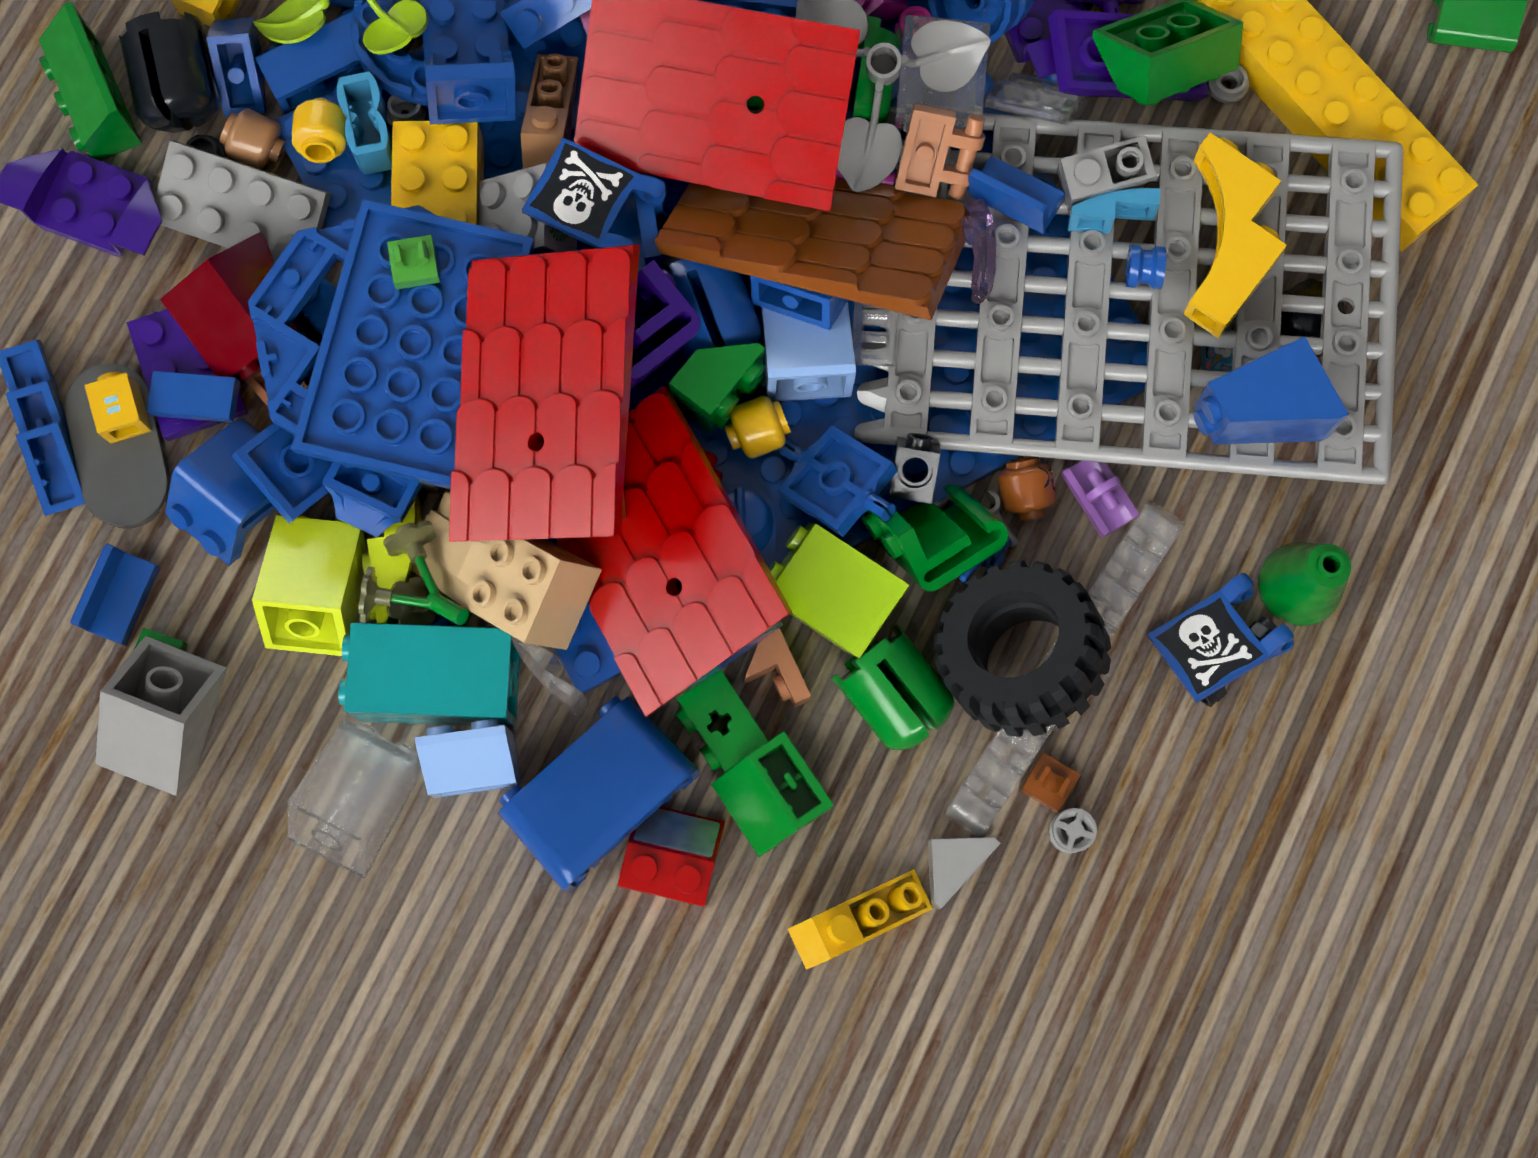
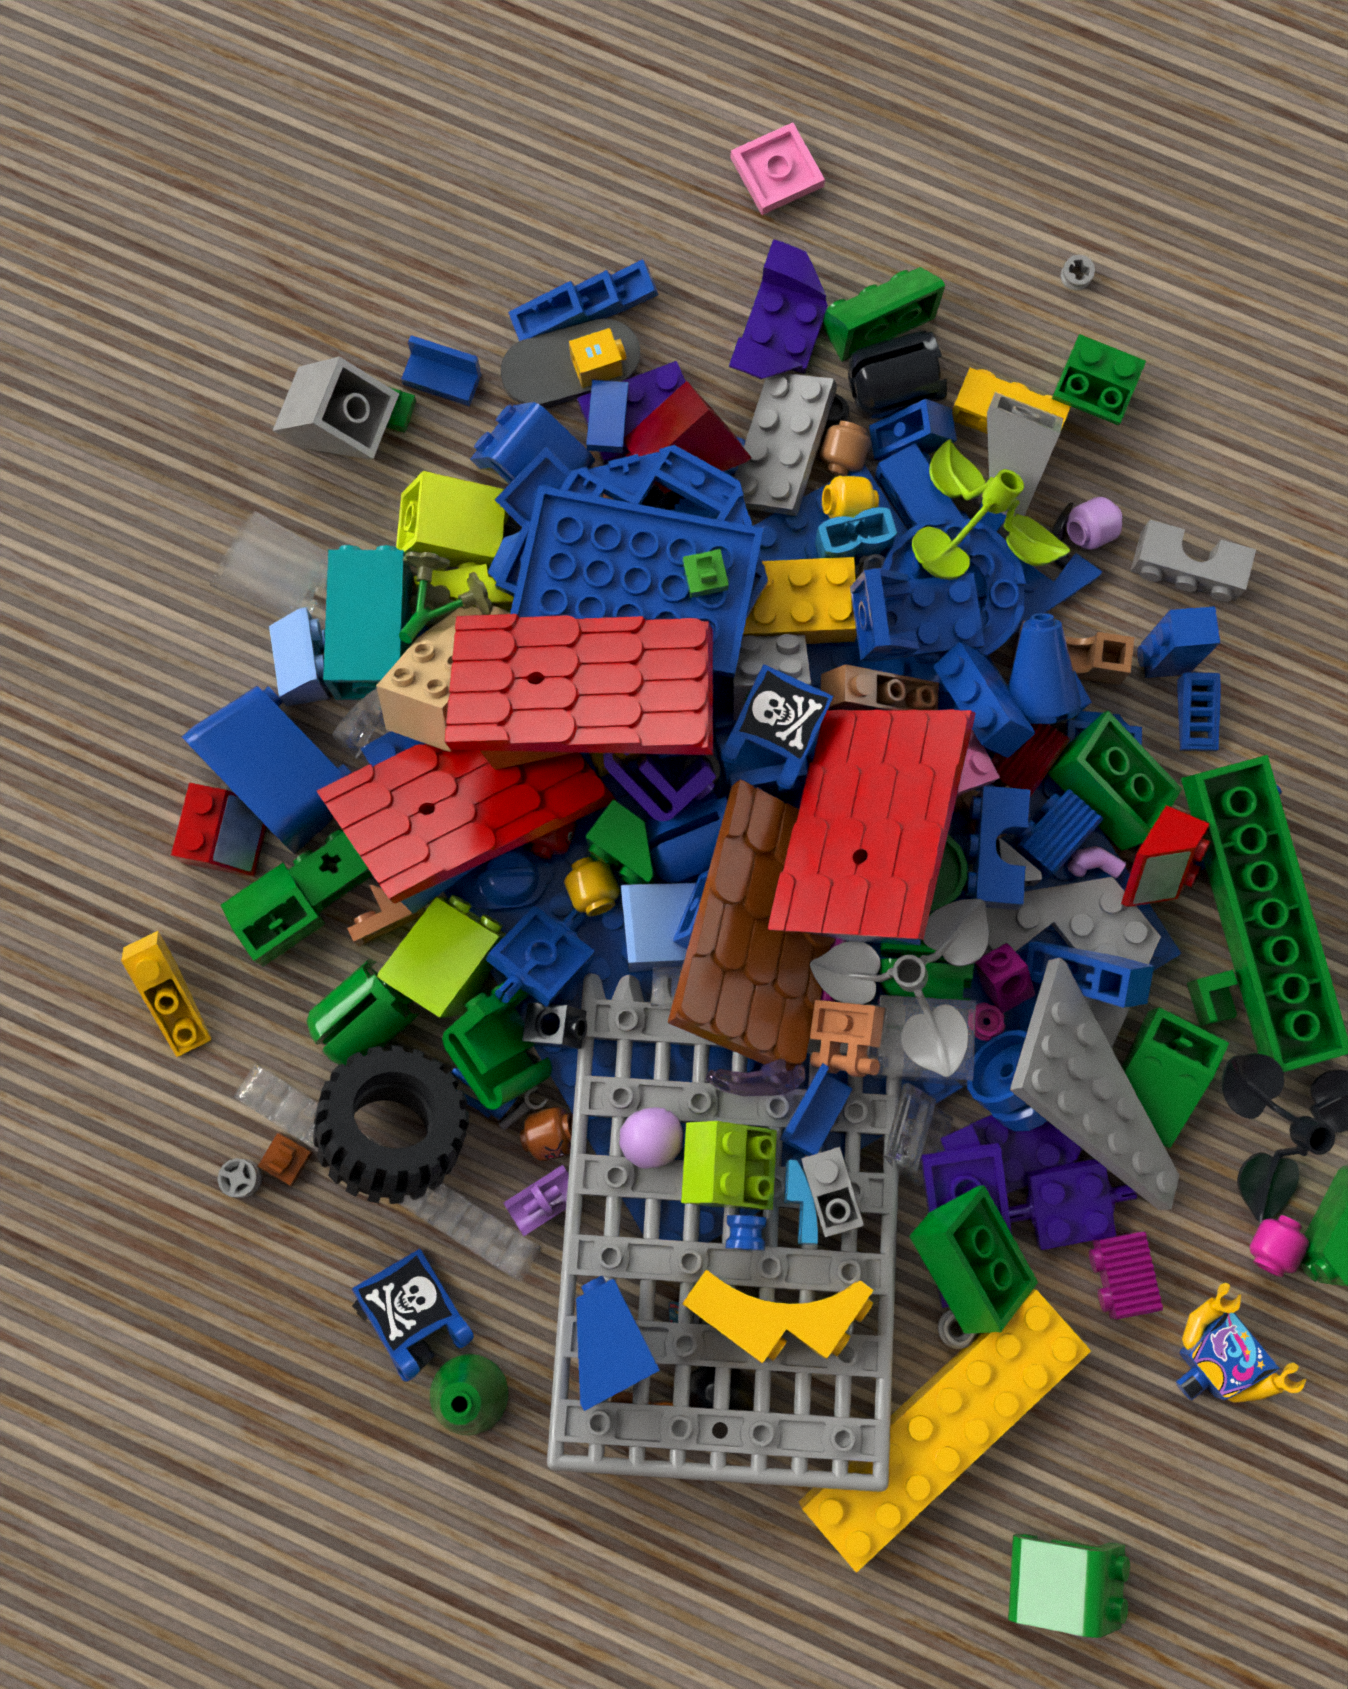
camera: 90 degrees right, 0 degrees up
(953, 863) = (212, 1072): light grey slope -> none
(1042, 364) = (651, 1137): none -> lavender hair
(1075, 282) = (729, 1165): none -> lime slope

